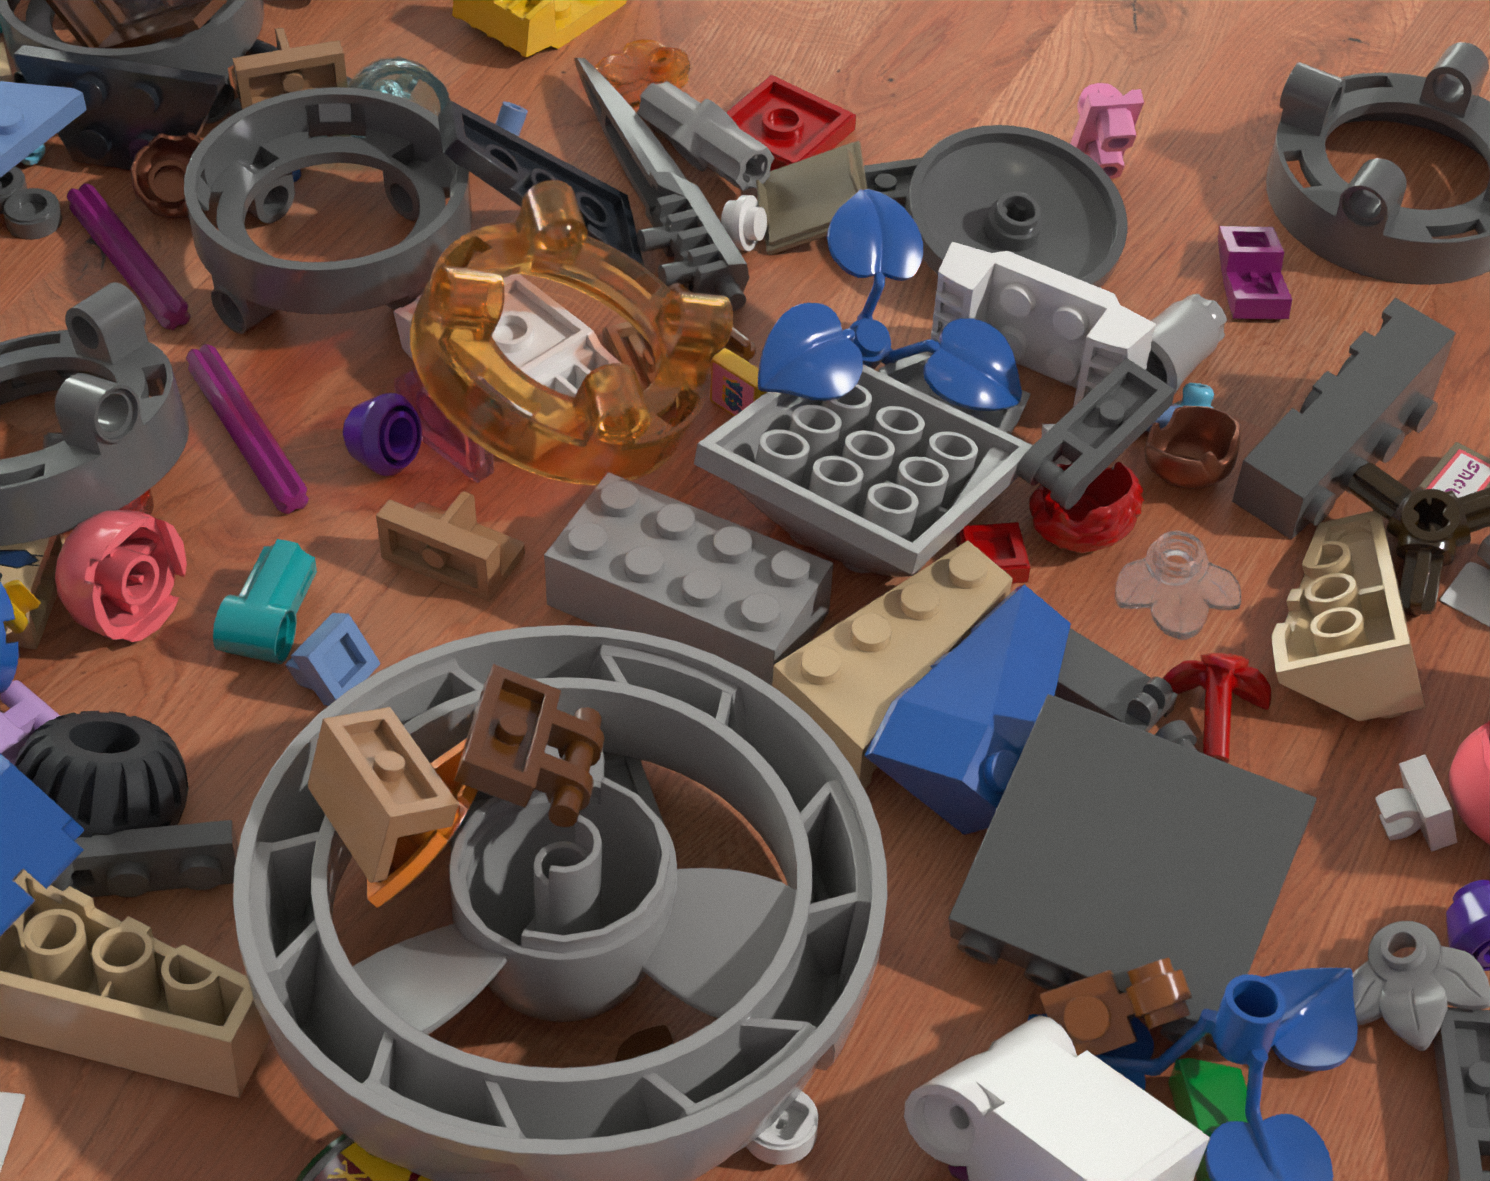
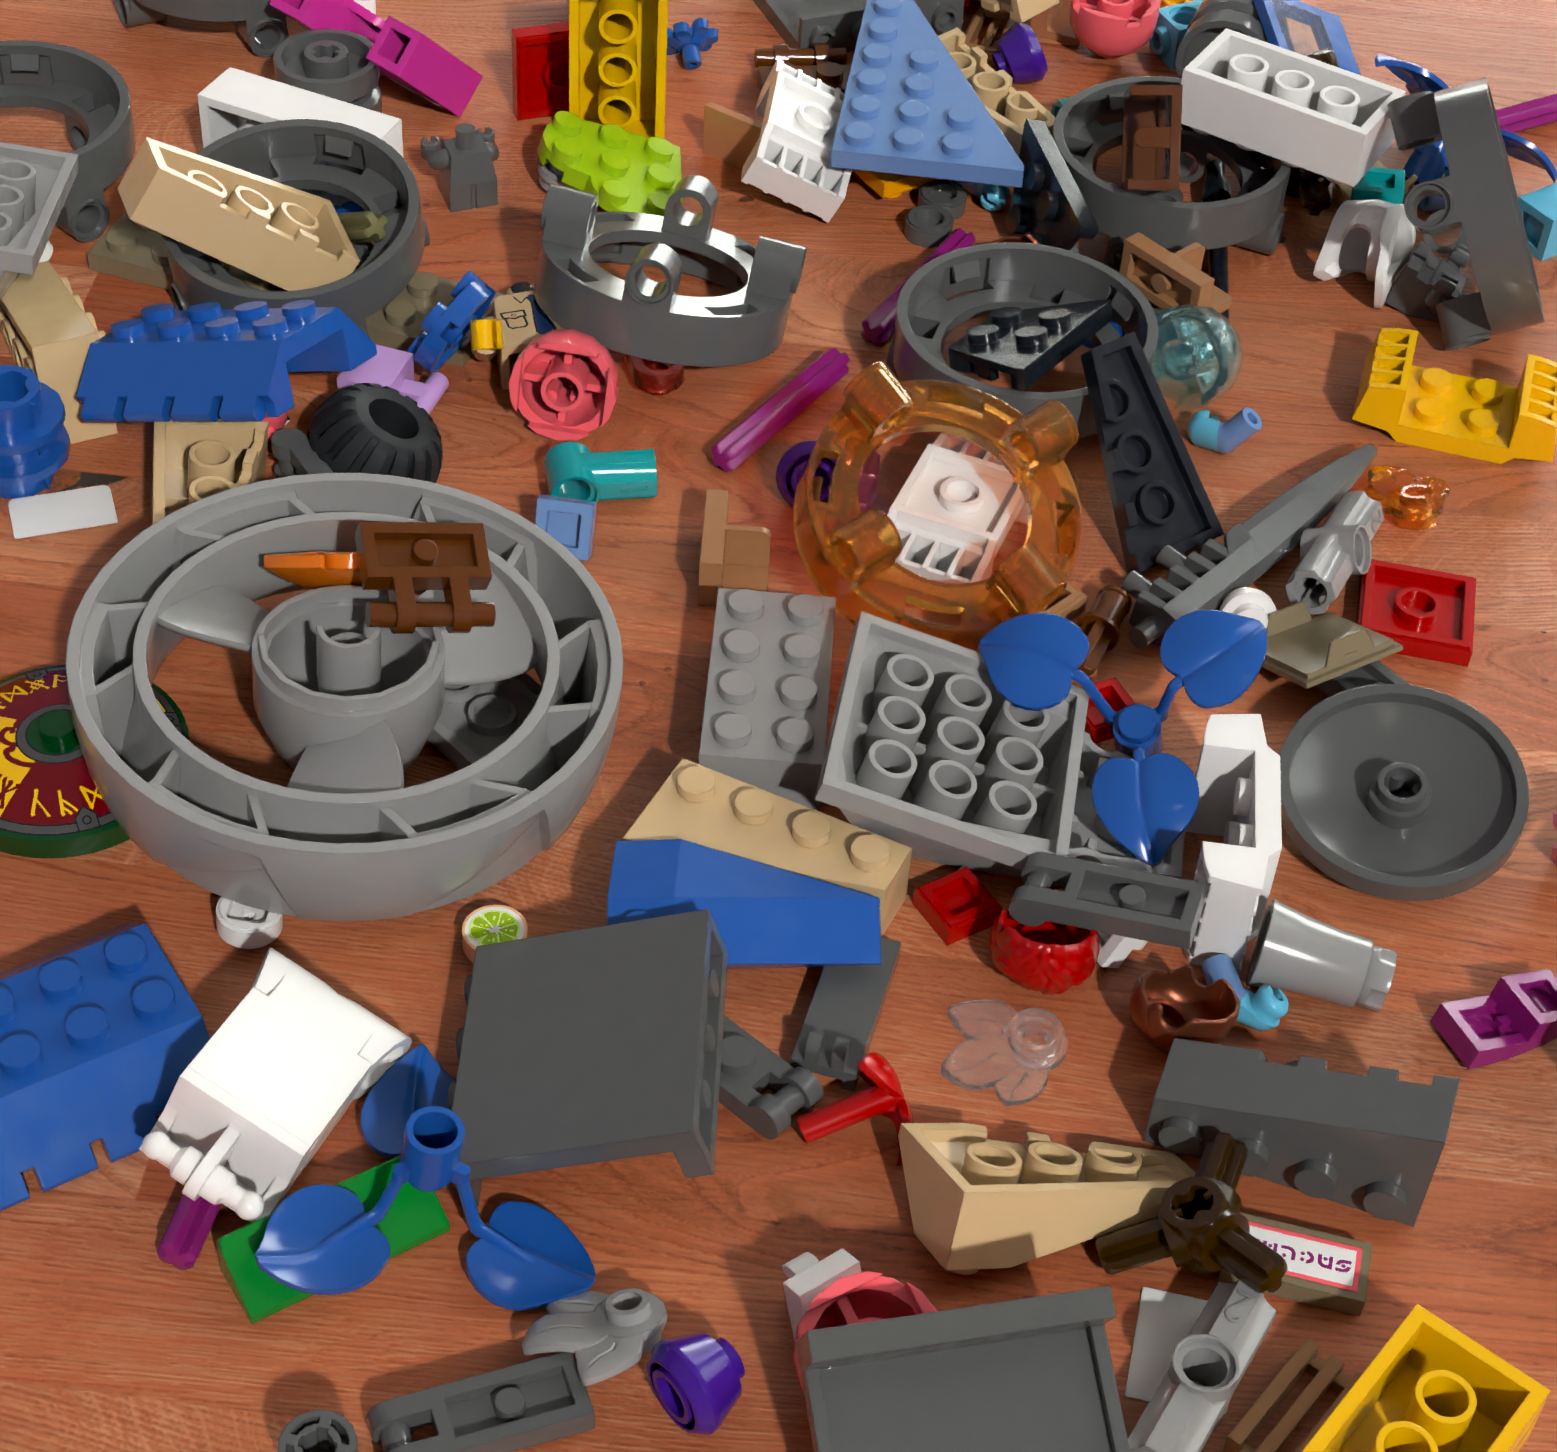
camera: 65 degrees right, 5 degrees down
(342, 196) = (1027, 340): none -> black wing
(376, 786) = (333, 507): medium nougat panel -> none
(902, 917) = (490, 926): none -> tile
(1098, 1014) = (429, 1073): dark orange plate -> none

